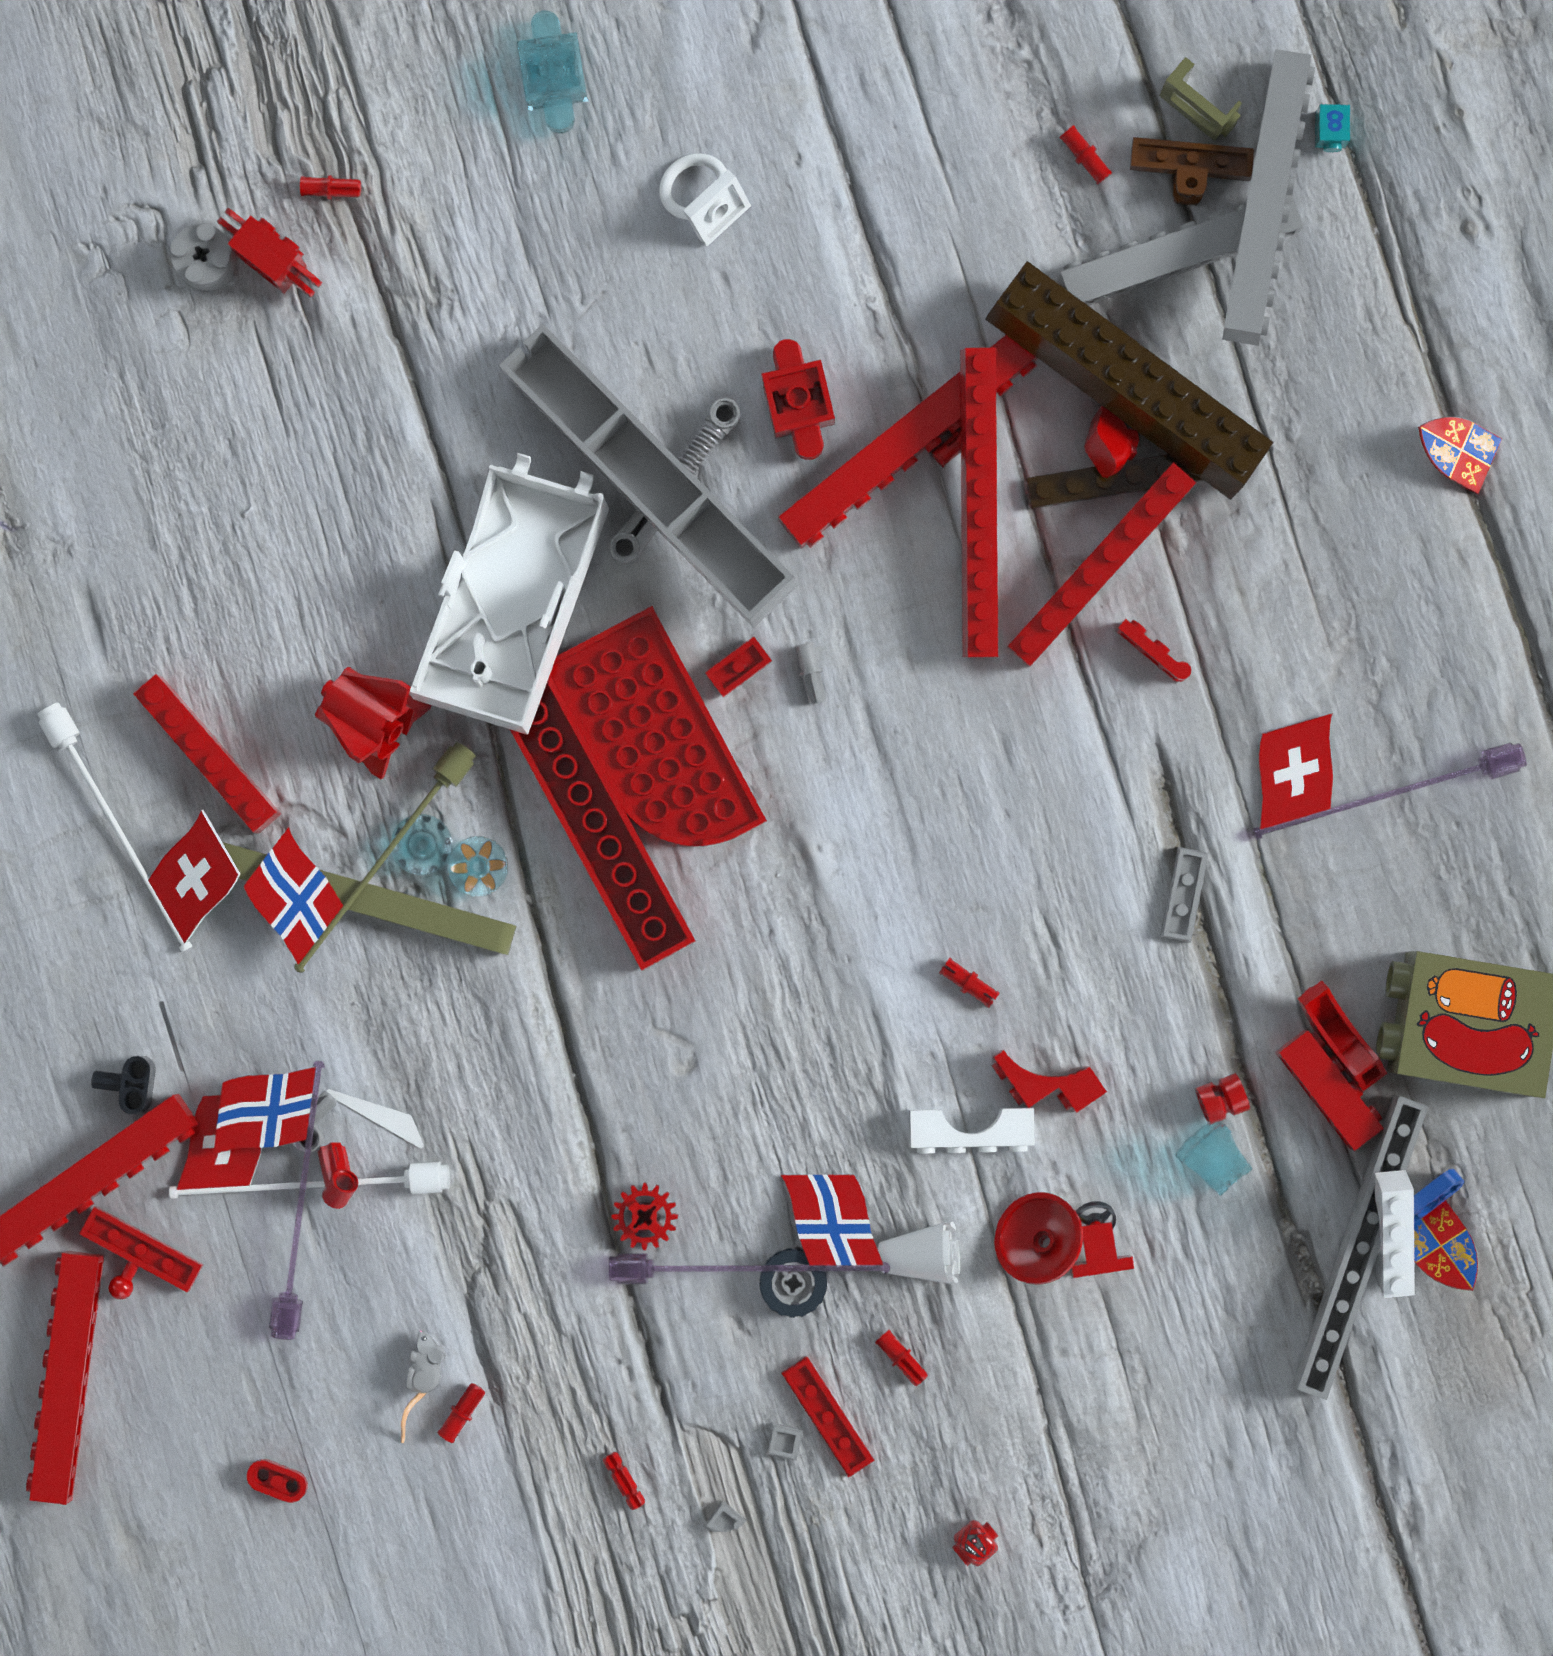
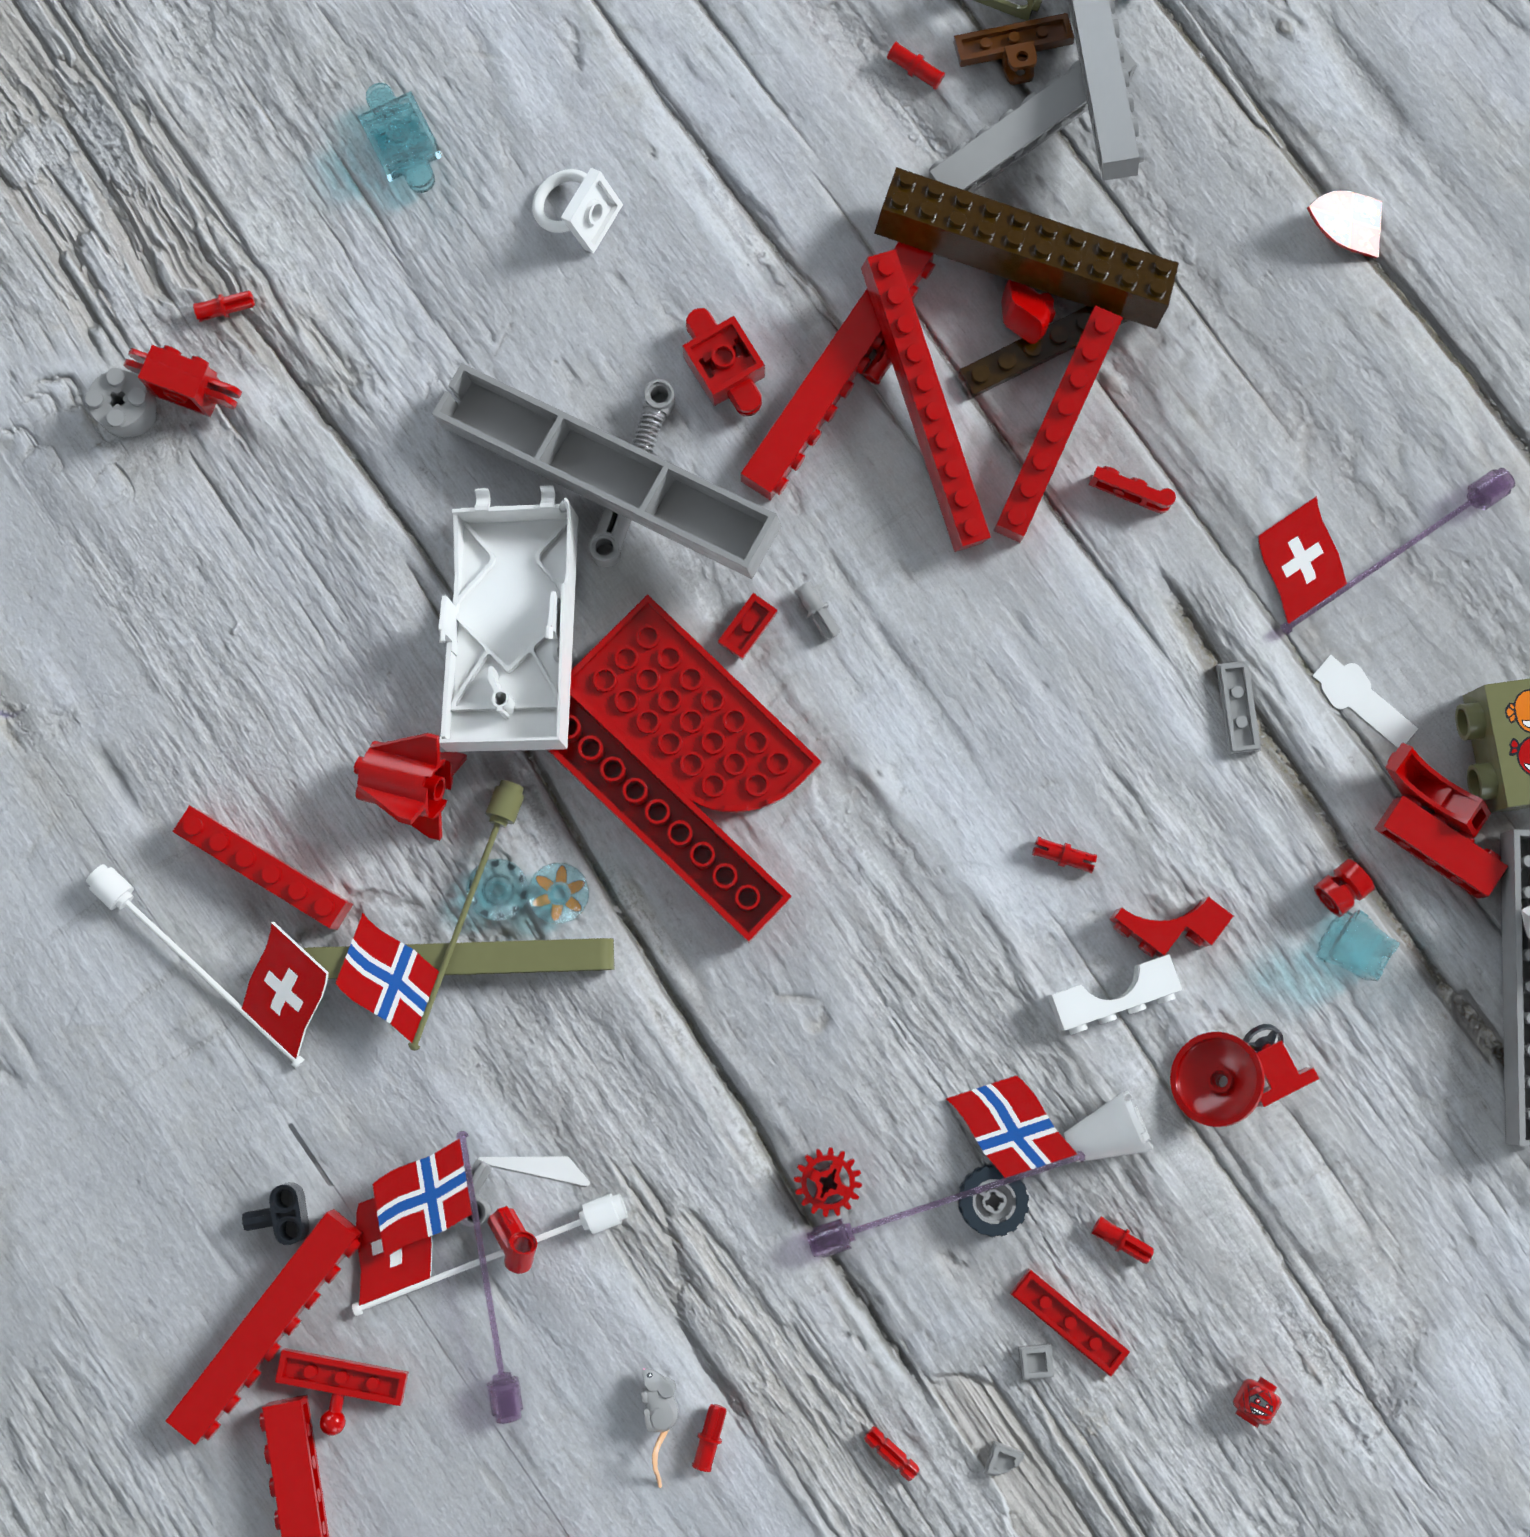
camera: 20 degrees left, 5 degrees down
(1301, 910) = (1352, 688): none -> white sticker

